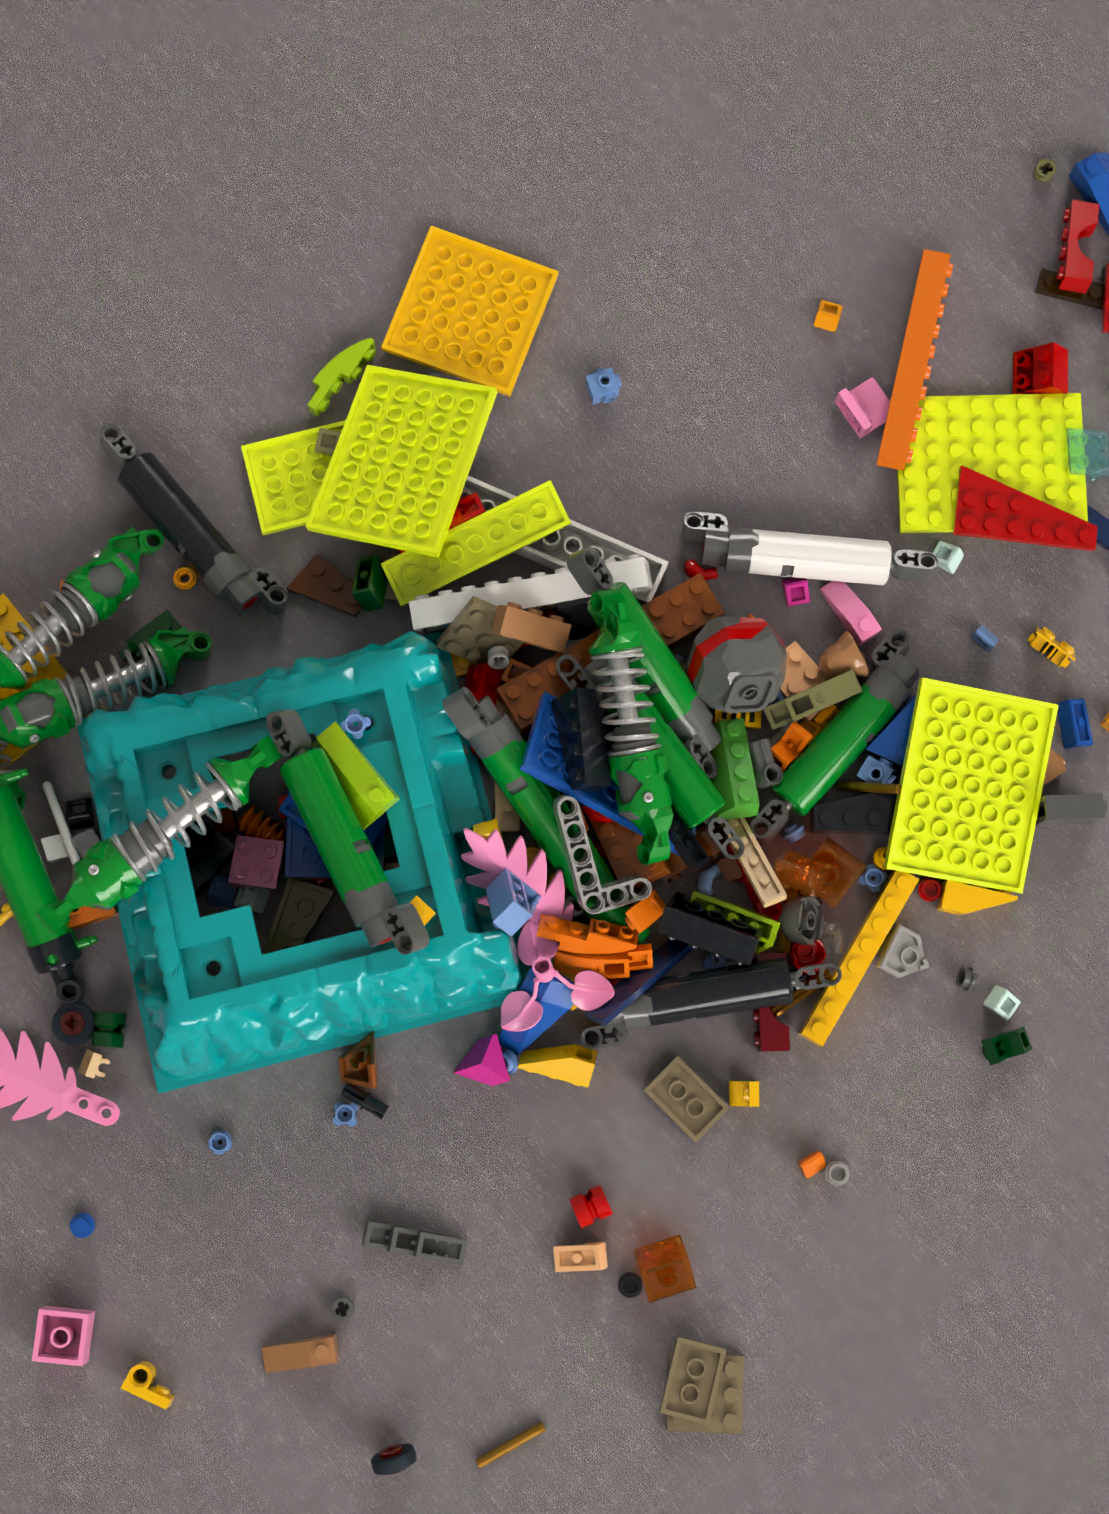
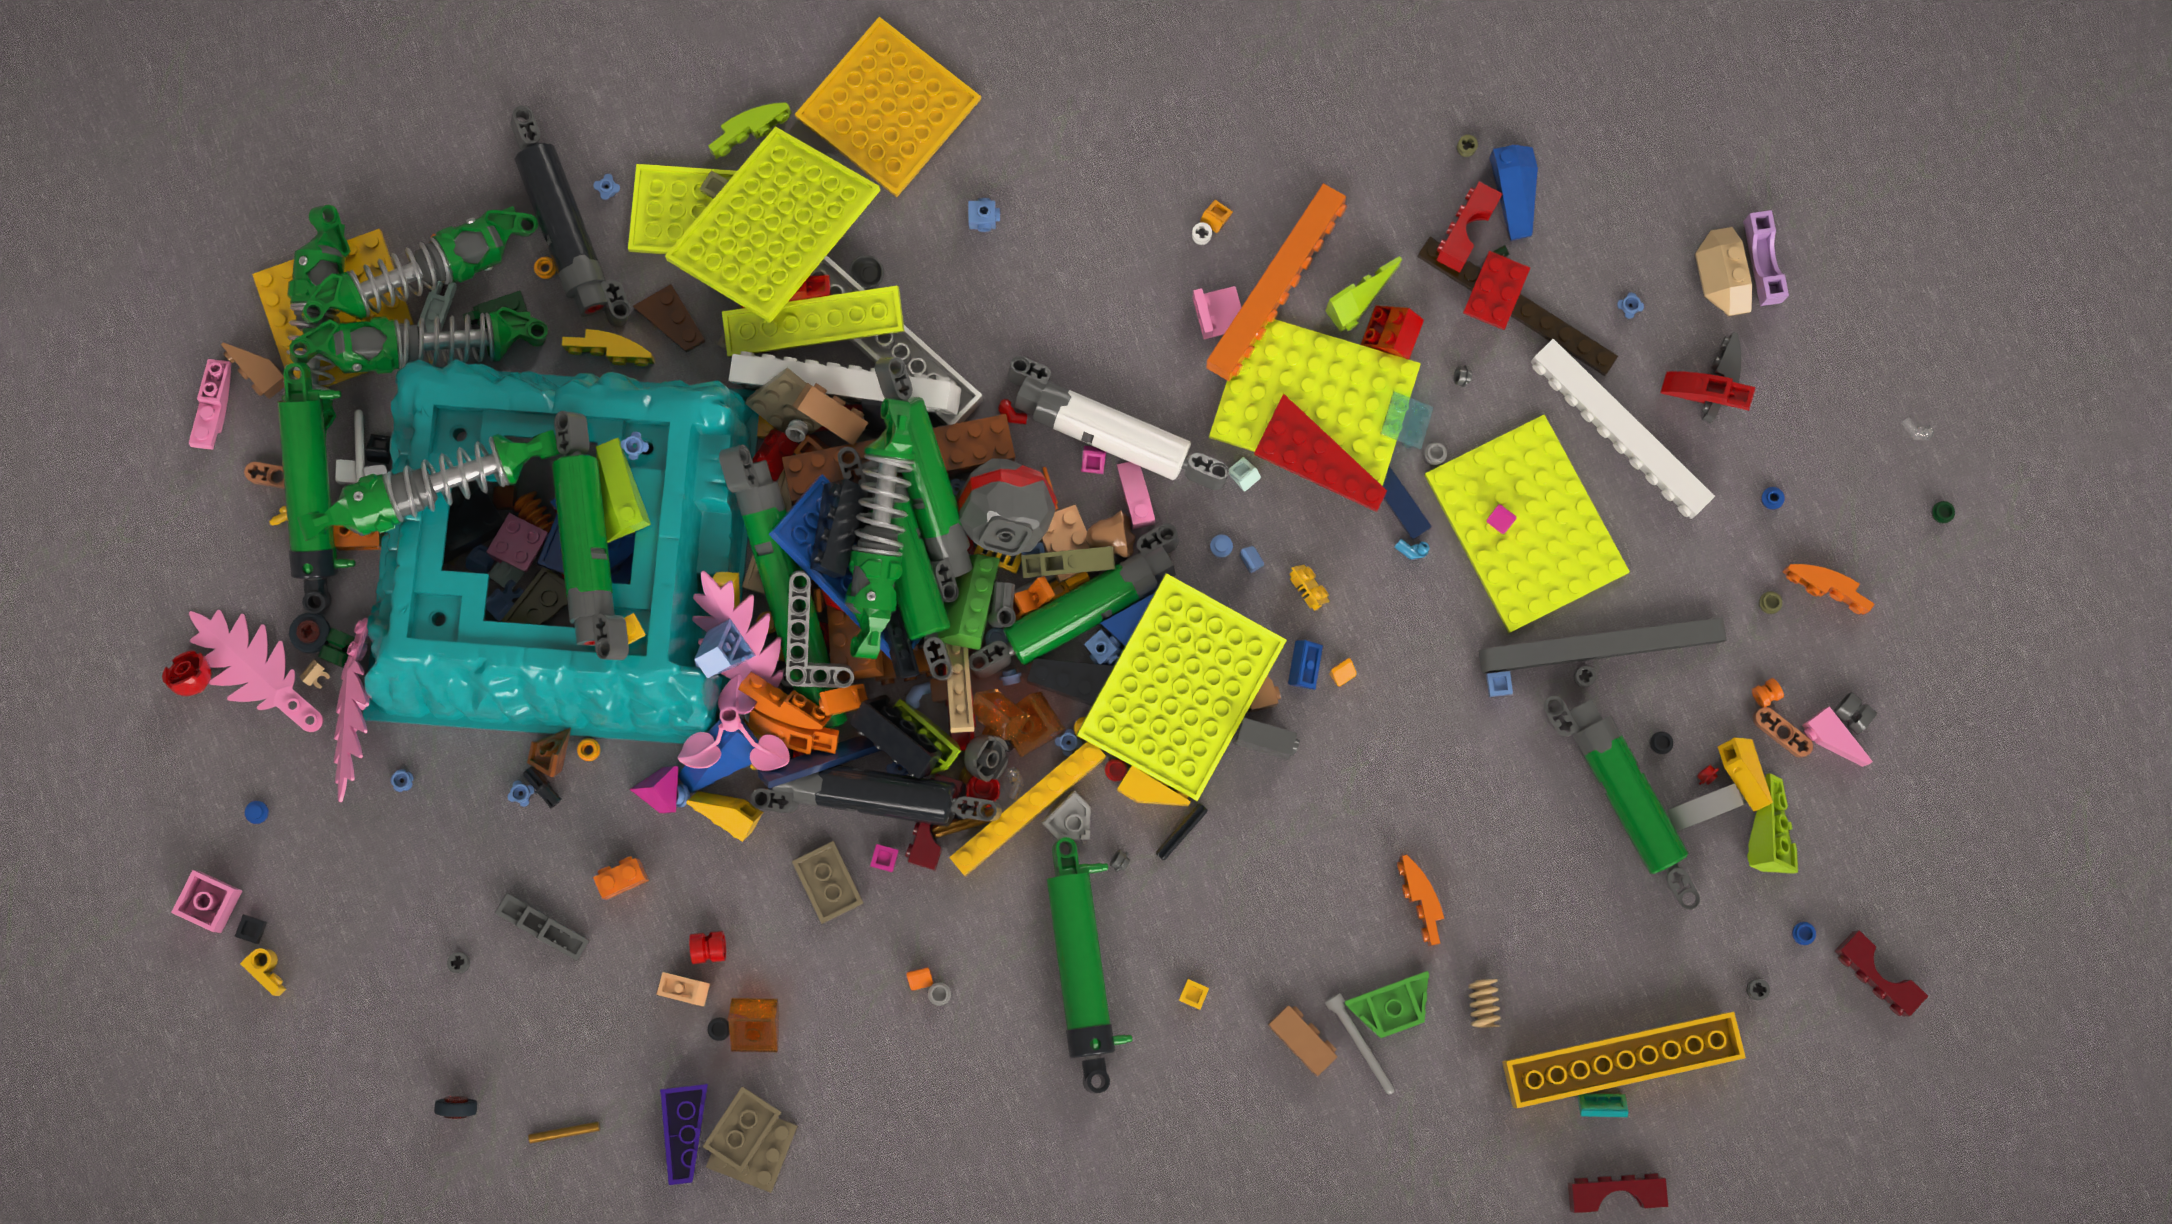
camera: 20 degrees right, 0 degrees up
(89, 651) = (437, 305): none -> light aqua hinge
(118, 1347) = (250, 929): none -> black plate
(141, 1082) = (349, 706): none -> bright pink plant
(221, 484) = (609, 192): none -> medium blue plate
(261, 921) = (500, 602): none -> medium blue plate
(287, 634) = (617, 348): none -> yellow slope
(301, 1353) = (408, 989): medium nougat slope -> none
(369, 583) = (706, 326): dark green brick -> none
(406, 1046) = (582, 747): none -> light orange plate
(478, 1166) = (620, 878): none -> orange brick
(509, 477) = (867, 271): none -> dark grey hair
(629, 1394) = (682, 1127): none -> dark purple wedge
(734, 1055) = (884, 858): none -> dark pink plate
(744, 1093) = (881, 894): yellow plate -> none
(765, 796) = (995, 634): none -> medium blue plate
(816, 342) = (1207, 229): none -> white bush
(869, 787) = (1090, 658): pearl gold bar -> none
(951, 634) = (1221, 546): none -> medium blue plate
(969, 1096) = (1081, 964): none -> green piece
(994, 356) = (1353, 301): none -> lime wedge
(1002, 1002) = (1145, 893): light aqua slope -> none
(1006, 1045) = (1131, 931): dark green brick -> none
(1015, 929) = (1181, 831): none -> black axle
(1087, 1087) = (1193, 994): none -> yellow plate

